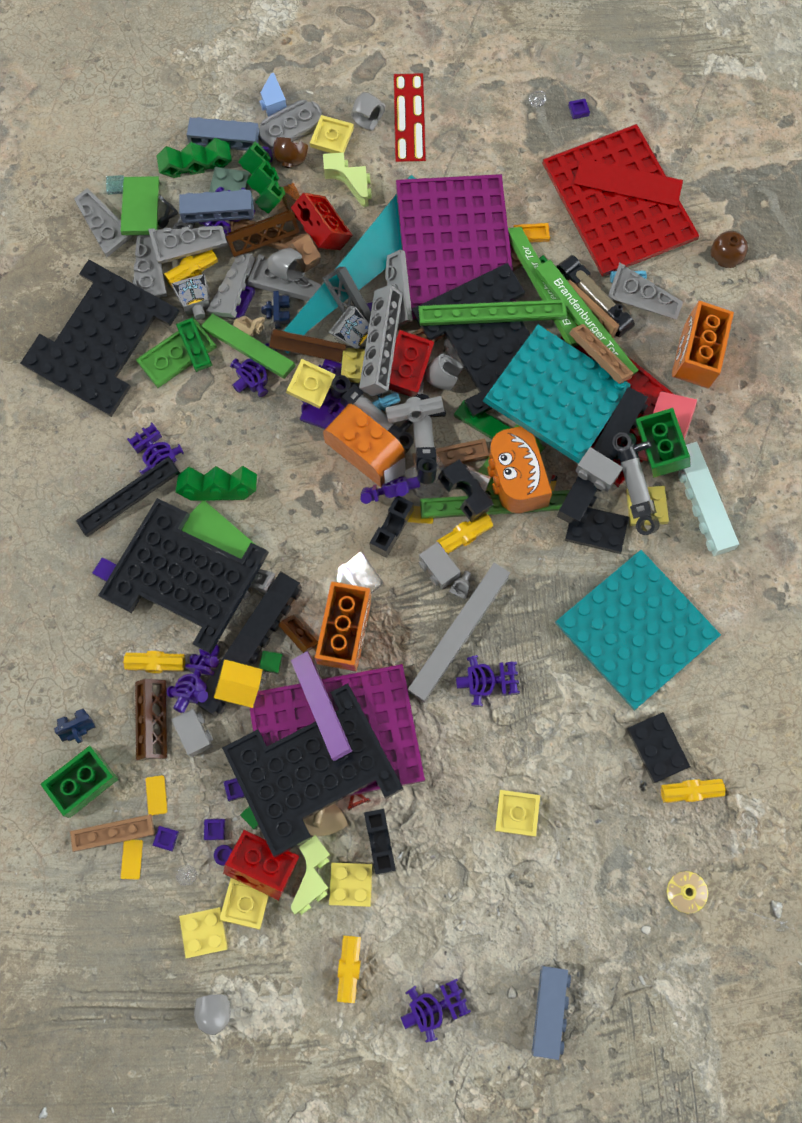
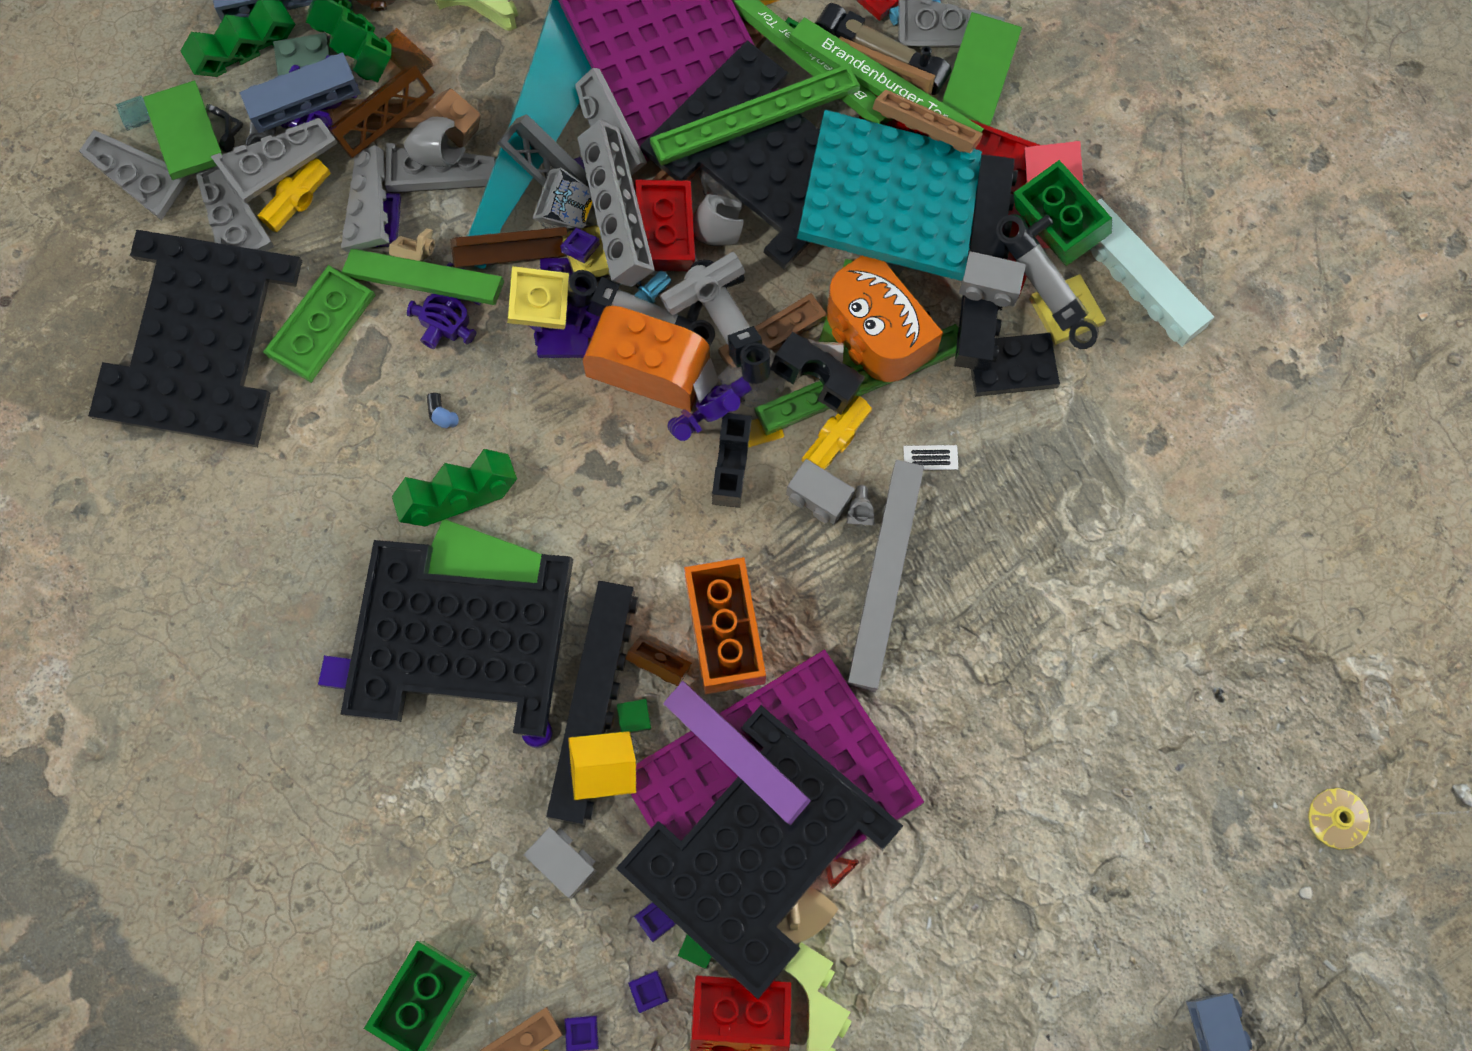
camera: 25 degrees left, 0 degrees up
(75, 728) = (383, 923): dark blue hips -> none
(127, 496) = (328, 554): black tile -> none
(146, 719) = (484, 867): reddish brown fence -> none
(154, 662) = (463, 780): yellow piece -> none
(155, 452) = (357, 481): dark purple piece -> none
(156, 795) = (542, 975): yellow sticker -> none
(190, 687) = (525, 799): dark purple piece -> none
(193, 295) = (312, 232): light grey torso -> none
(194, 344) = (342, 301): green tile -> none
(222, 854) = (677, 1024): dark purple tile -> none
(225, 434) = (438, 414): none -> medium blue arm
(263, 581) = (579, 604): light grey slope -> none
(279, 302) = (433, 216): dark blue hips -> none
(321, 221) = (460, 67): red piece -> none
(350, 359) = (580, 245): none -> dark purple tile
(350, 884) = (877, 993): light yellow plate -> none
(359, 573) = (711, 543): clear slope -> none
(380, 842) = (895, 916): black arch -> none
(468, 681) = (931, 637): dark purple piece -> none
(483, 423) = (800, 273): green tile -> none
(517, 813) = (1068, 799): light yellow plate -> none
(520, 569) = (933, 456): none -> sticker
(637, 629) = (1124, 483): teal plate -> none
(654, 330) = (981, 67): none -> bright green tile
(658, 747) = (1219, 634): black plate -> none
(692, 790) = (1290, 675): yellow piece -> none
(703, 345) = (1058, 65): orange brick -> none

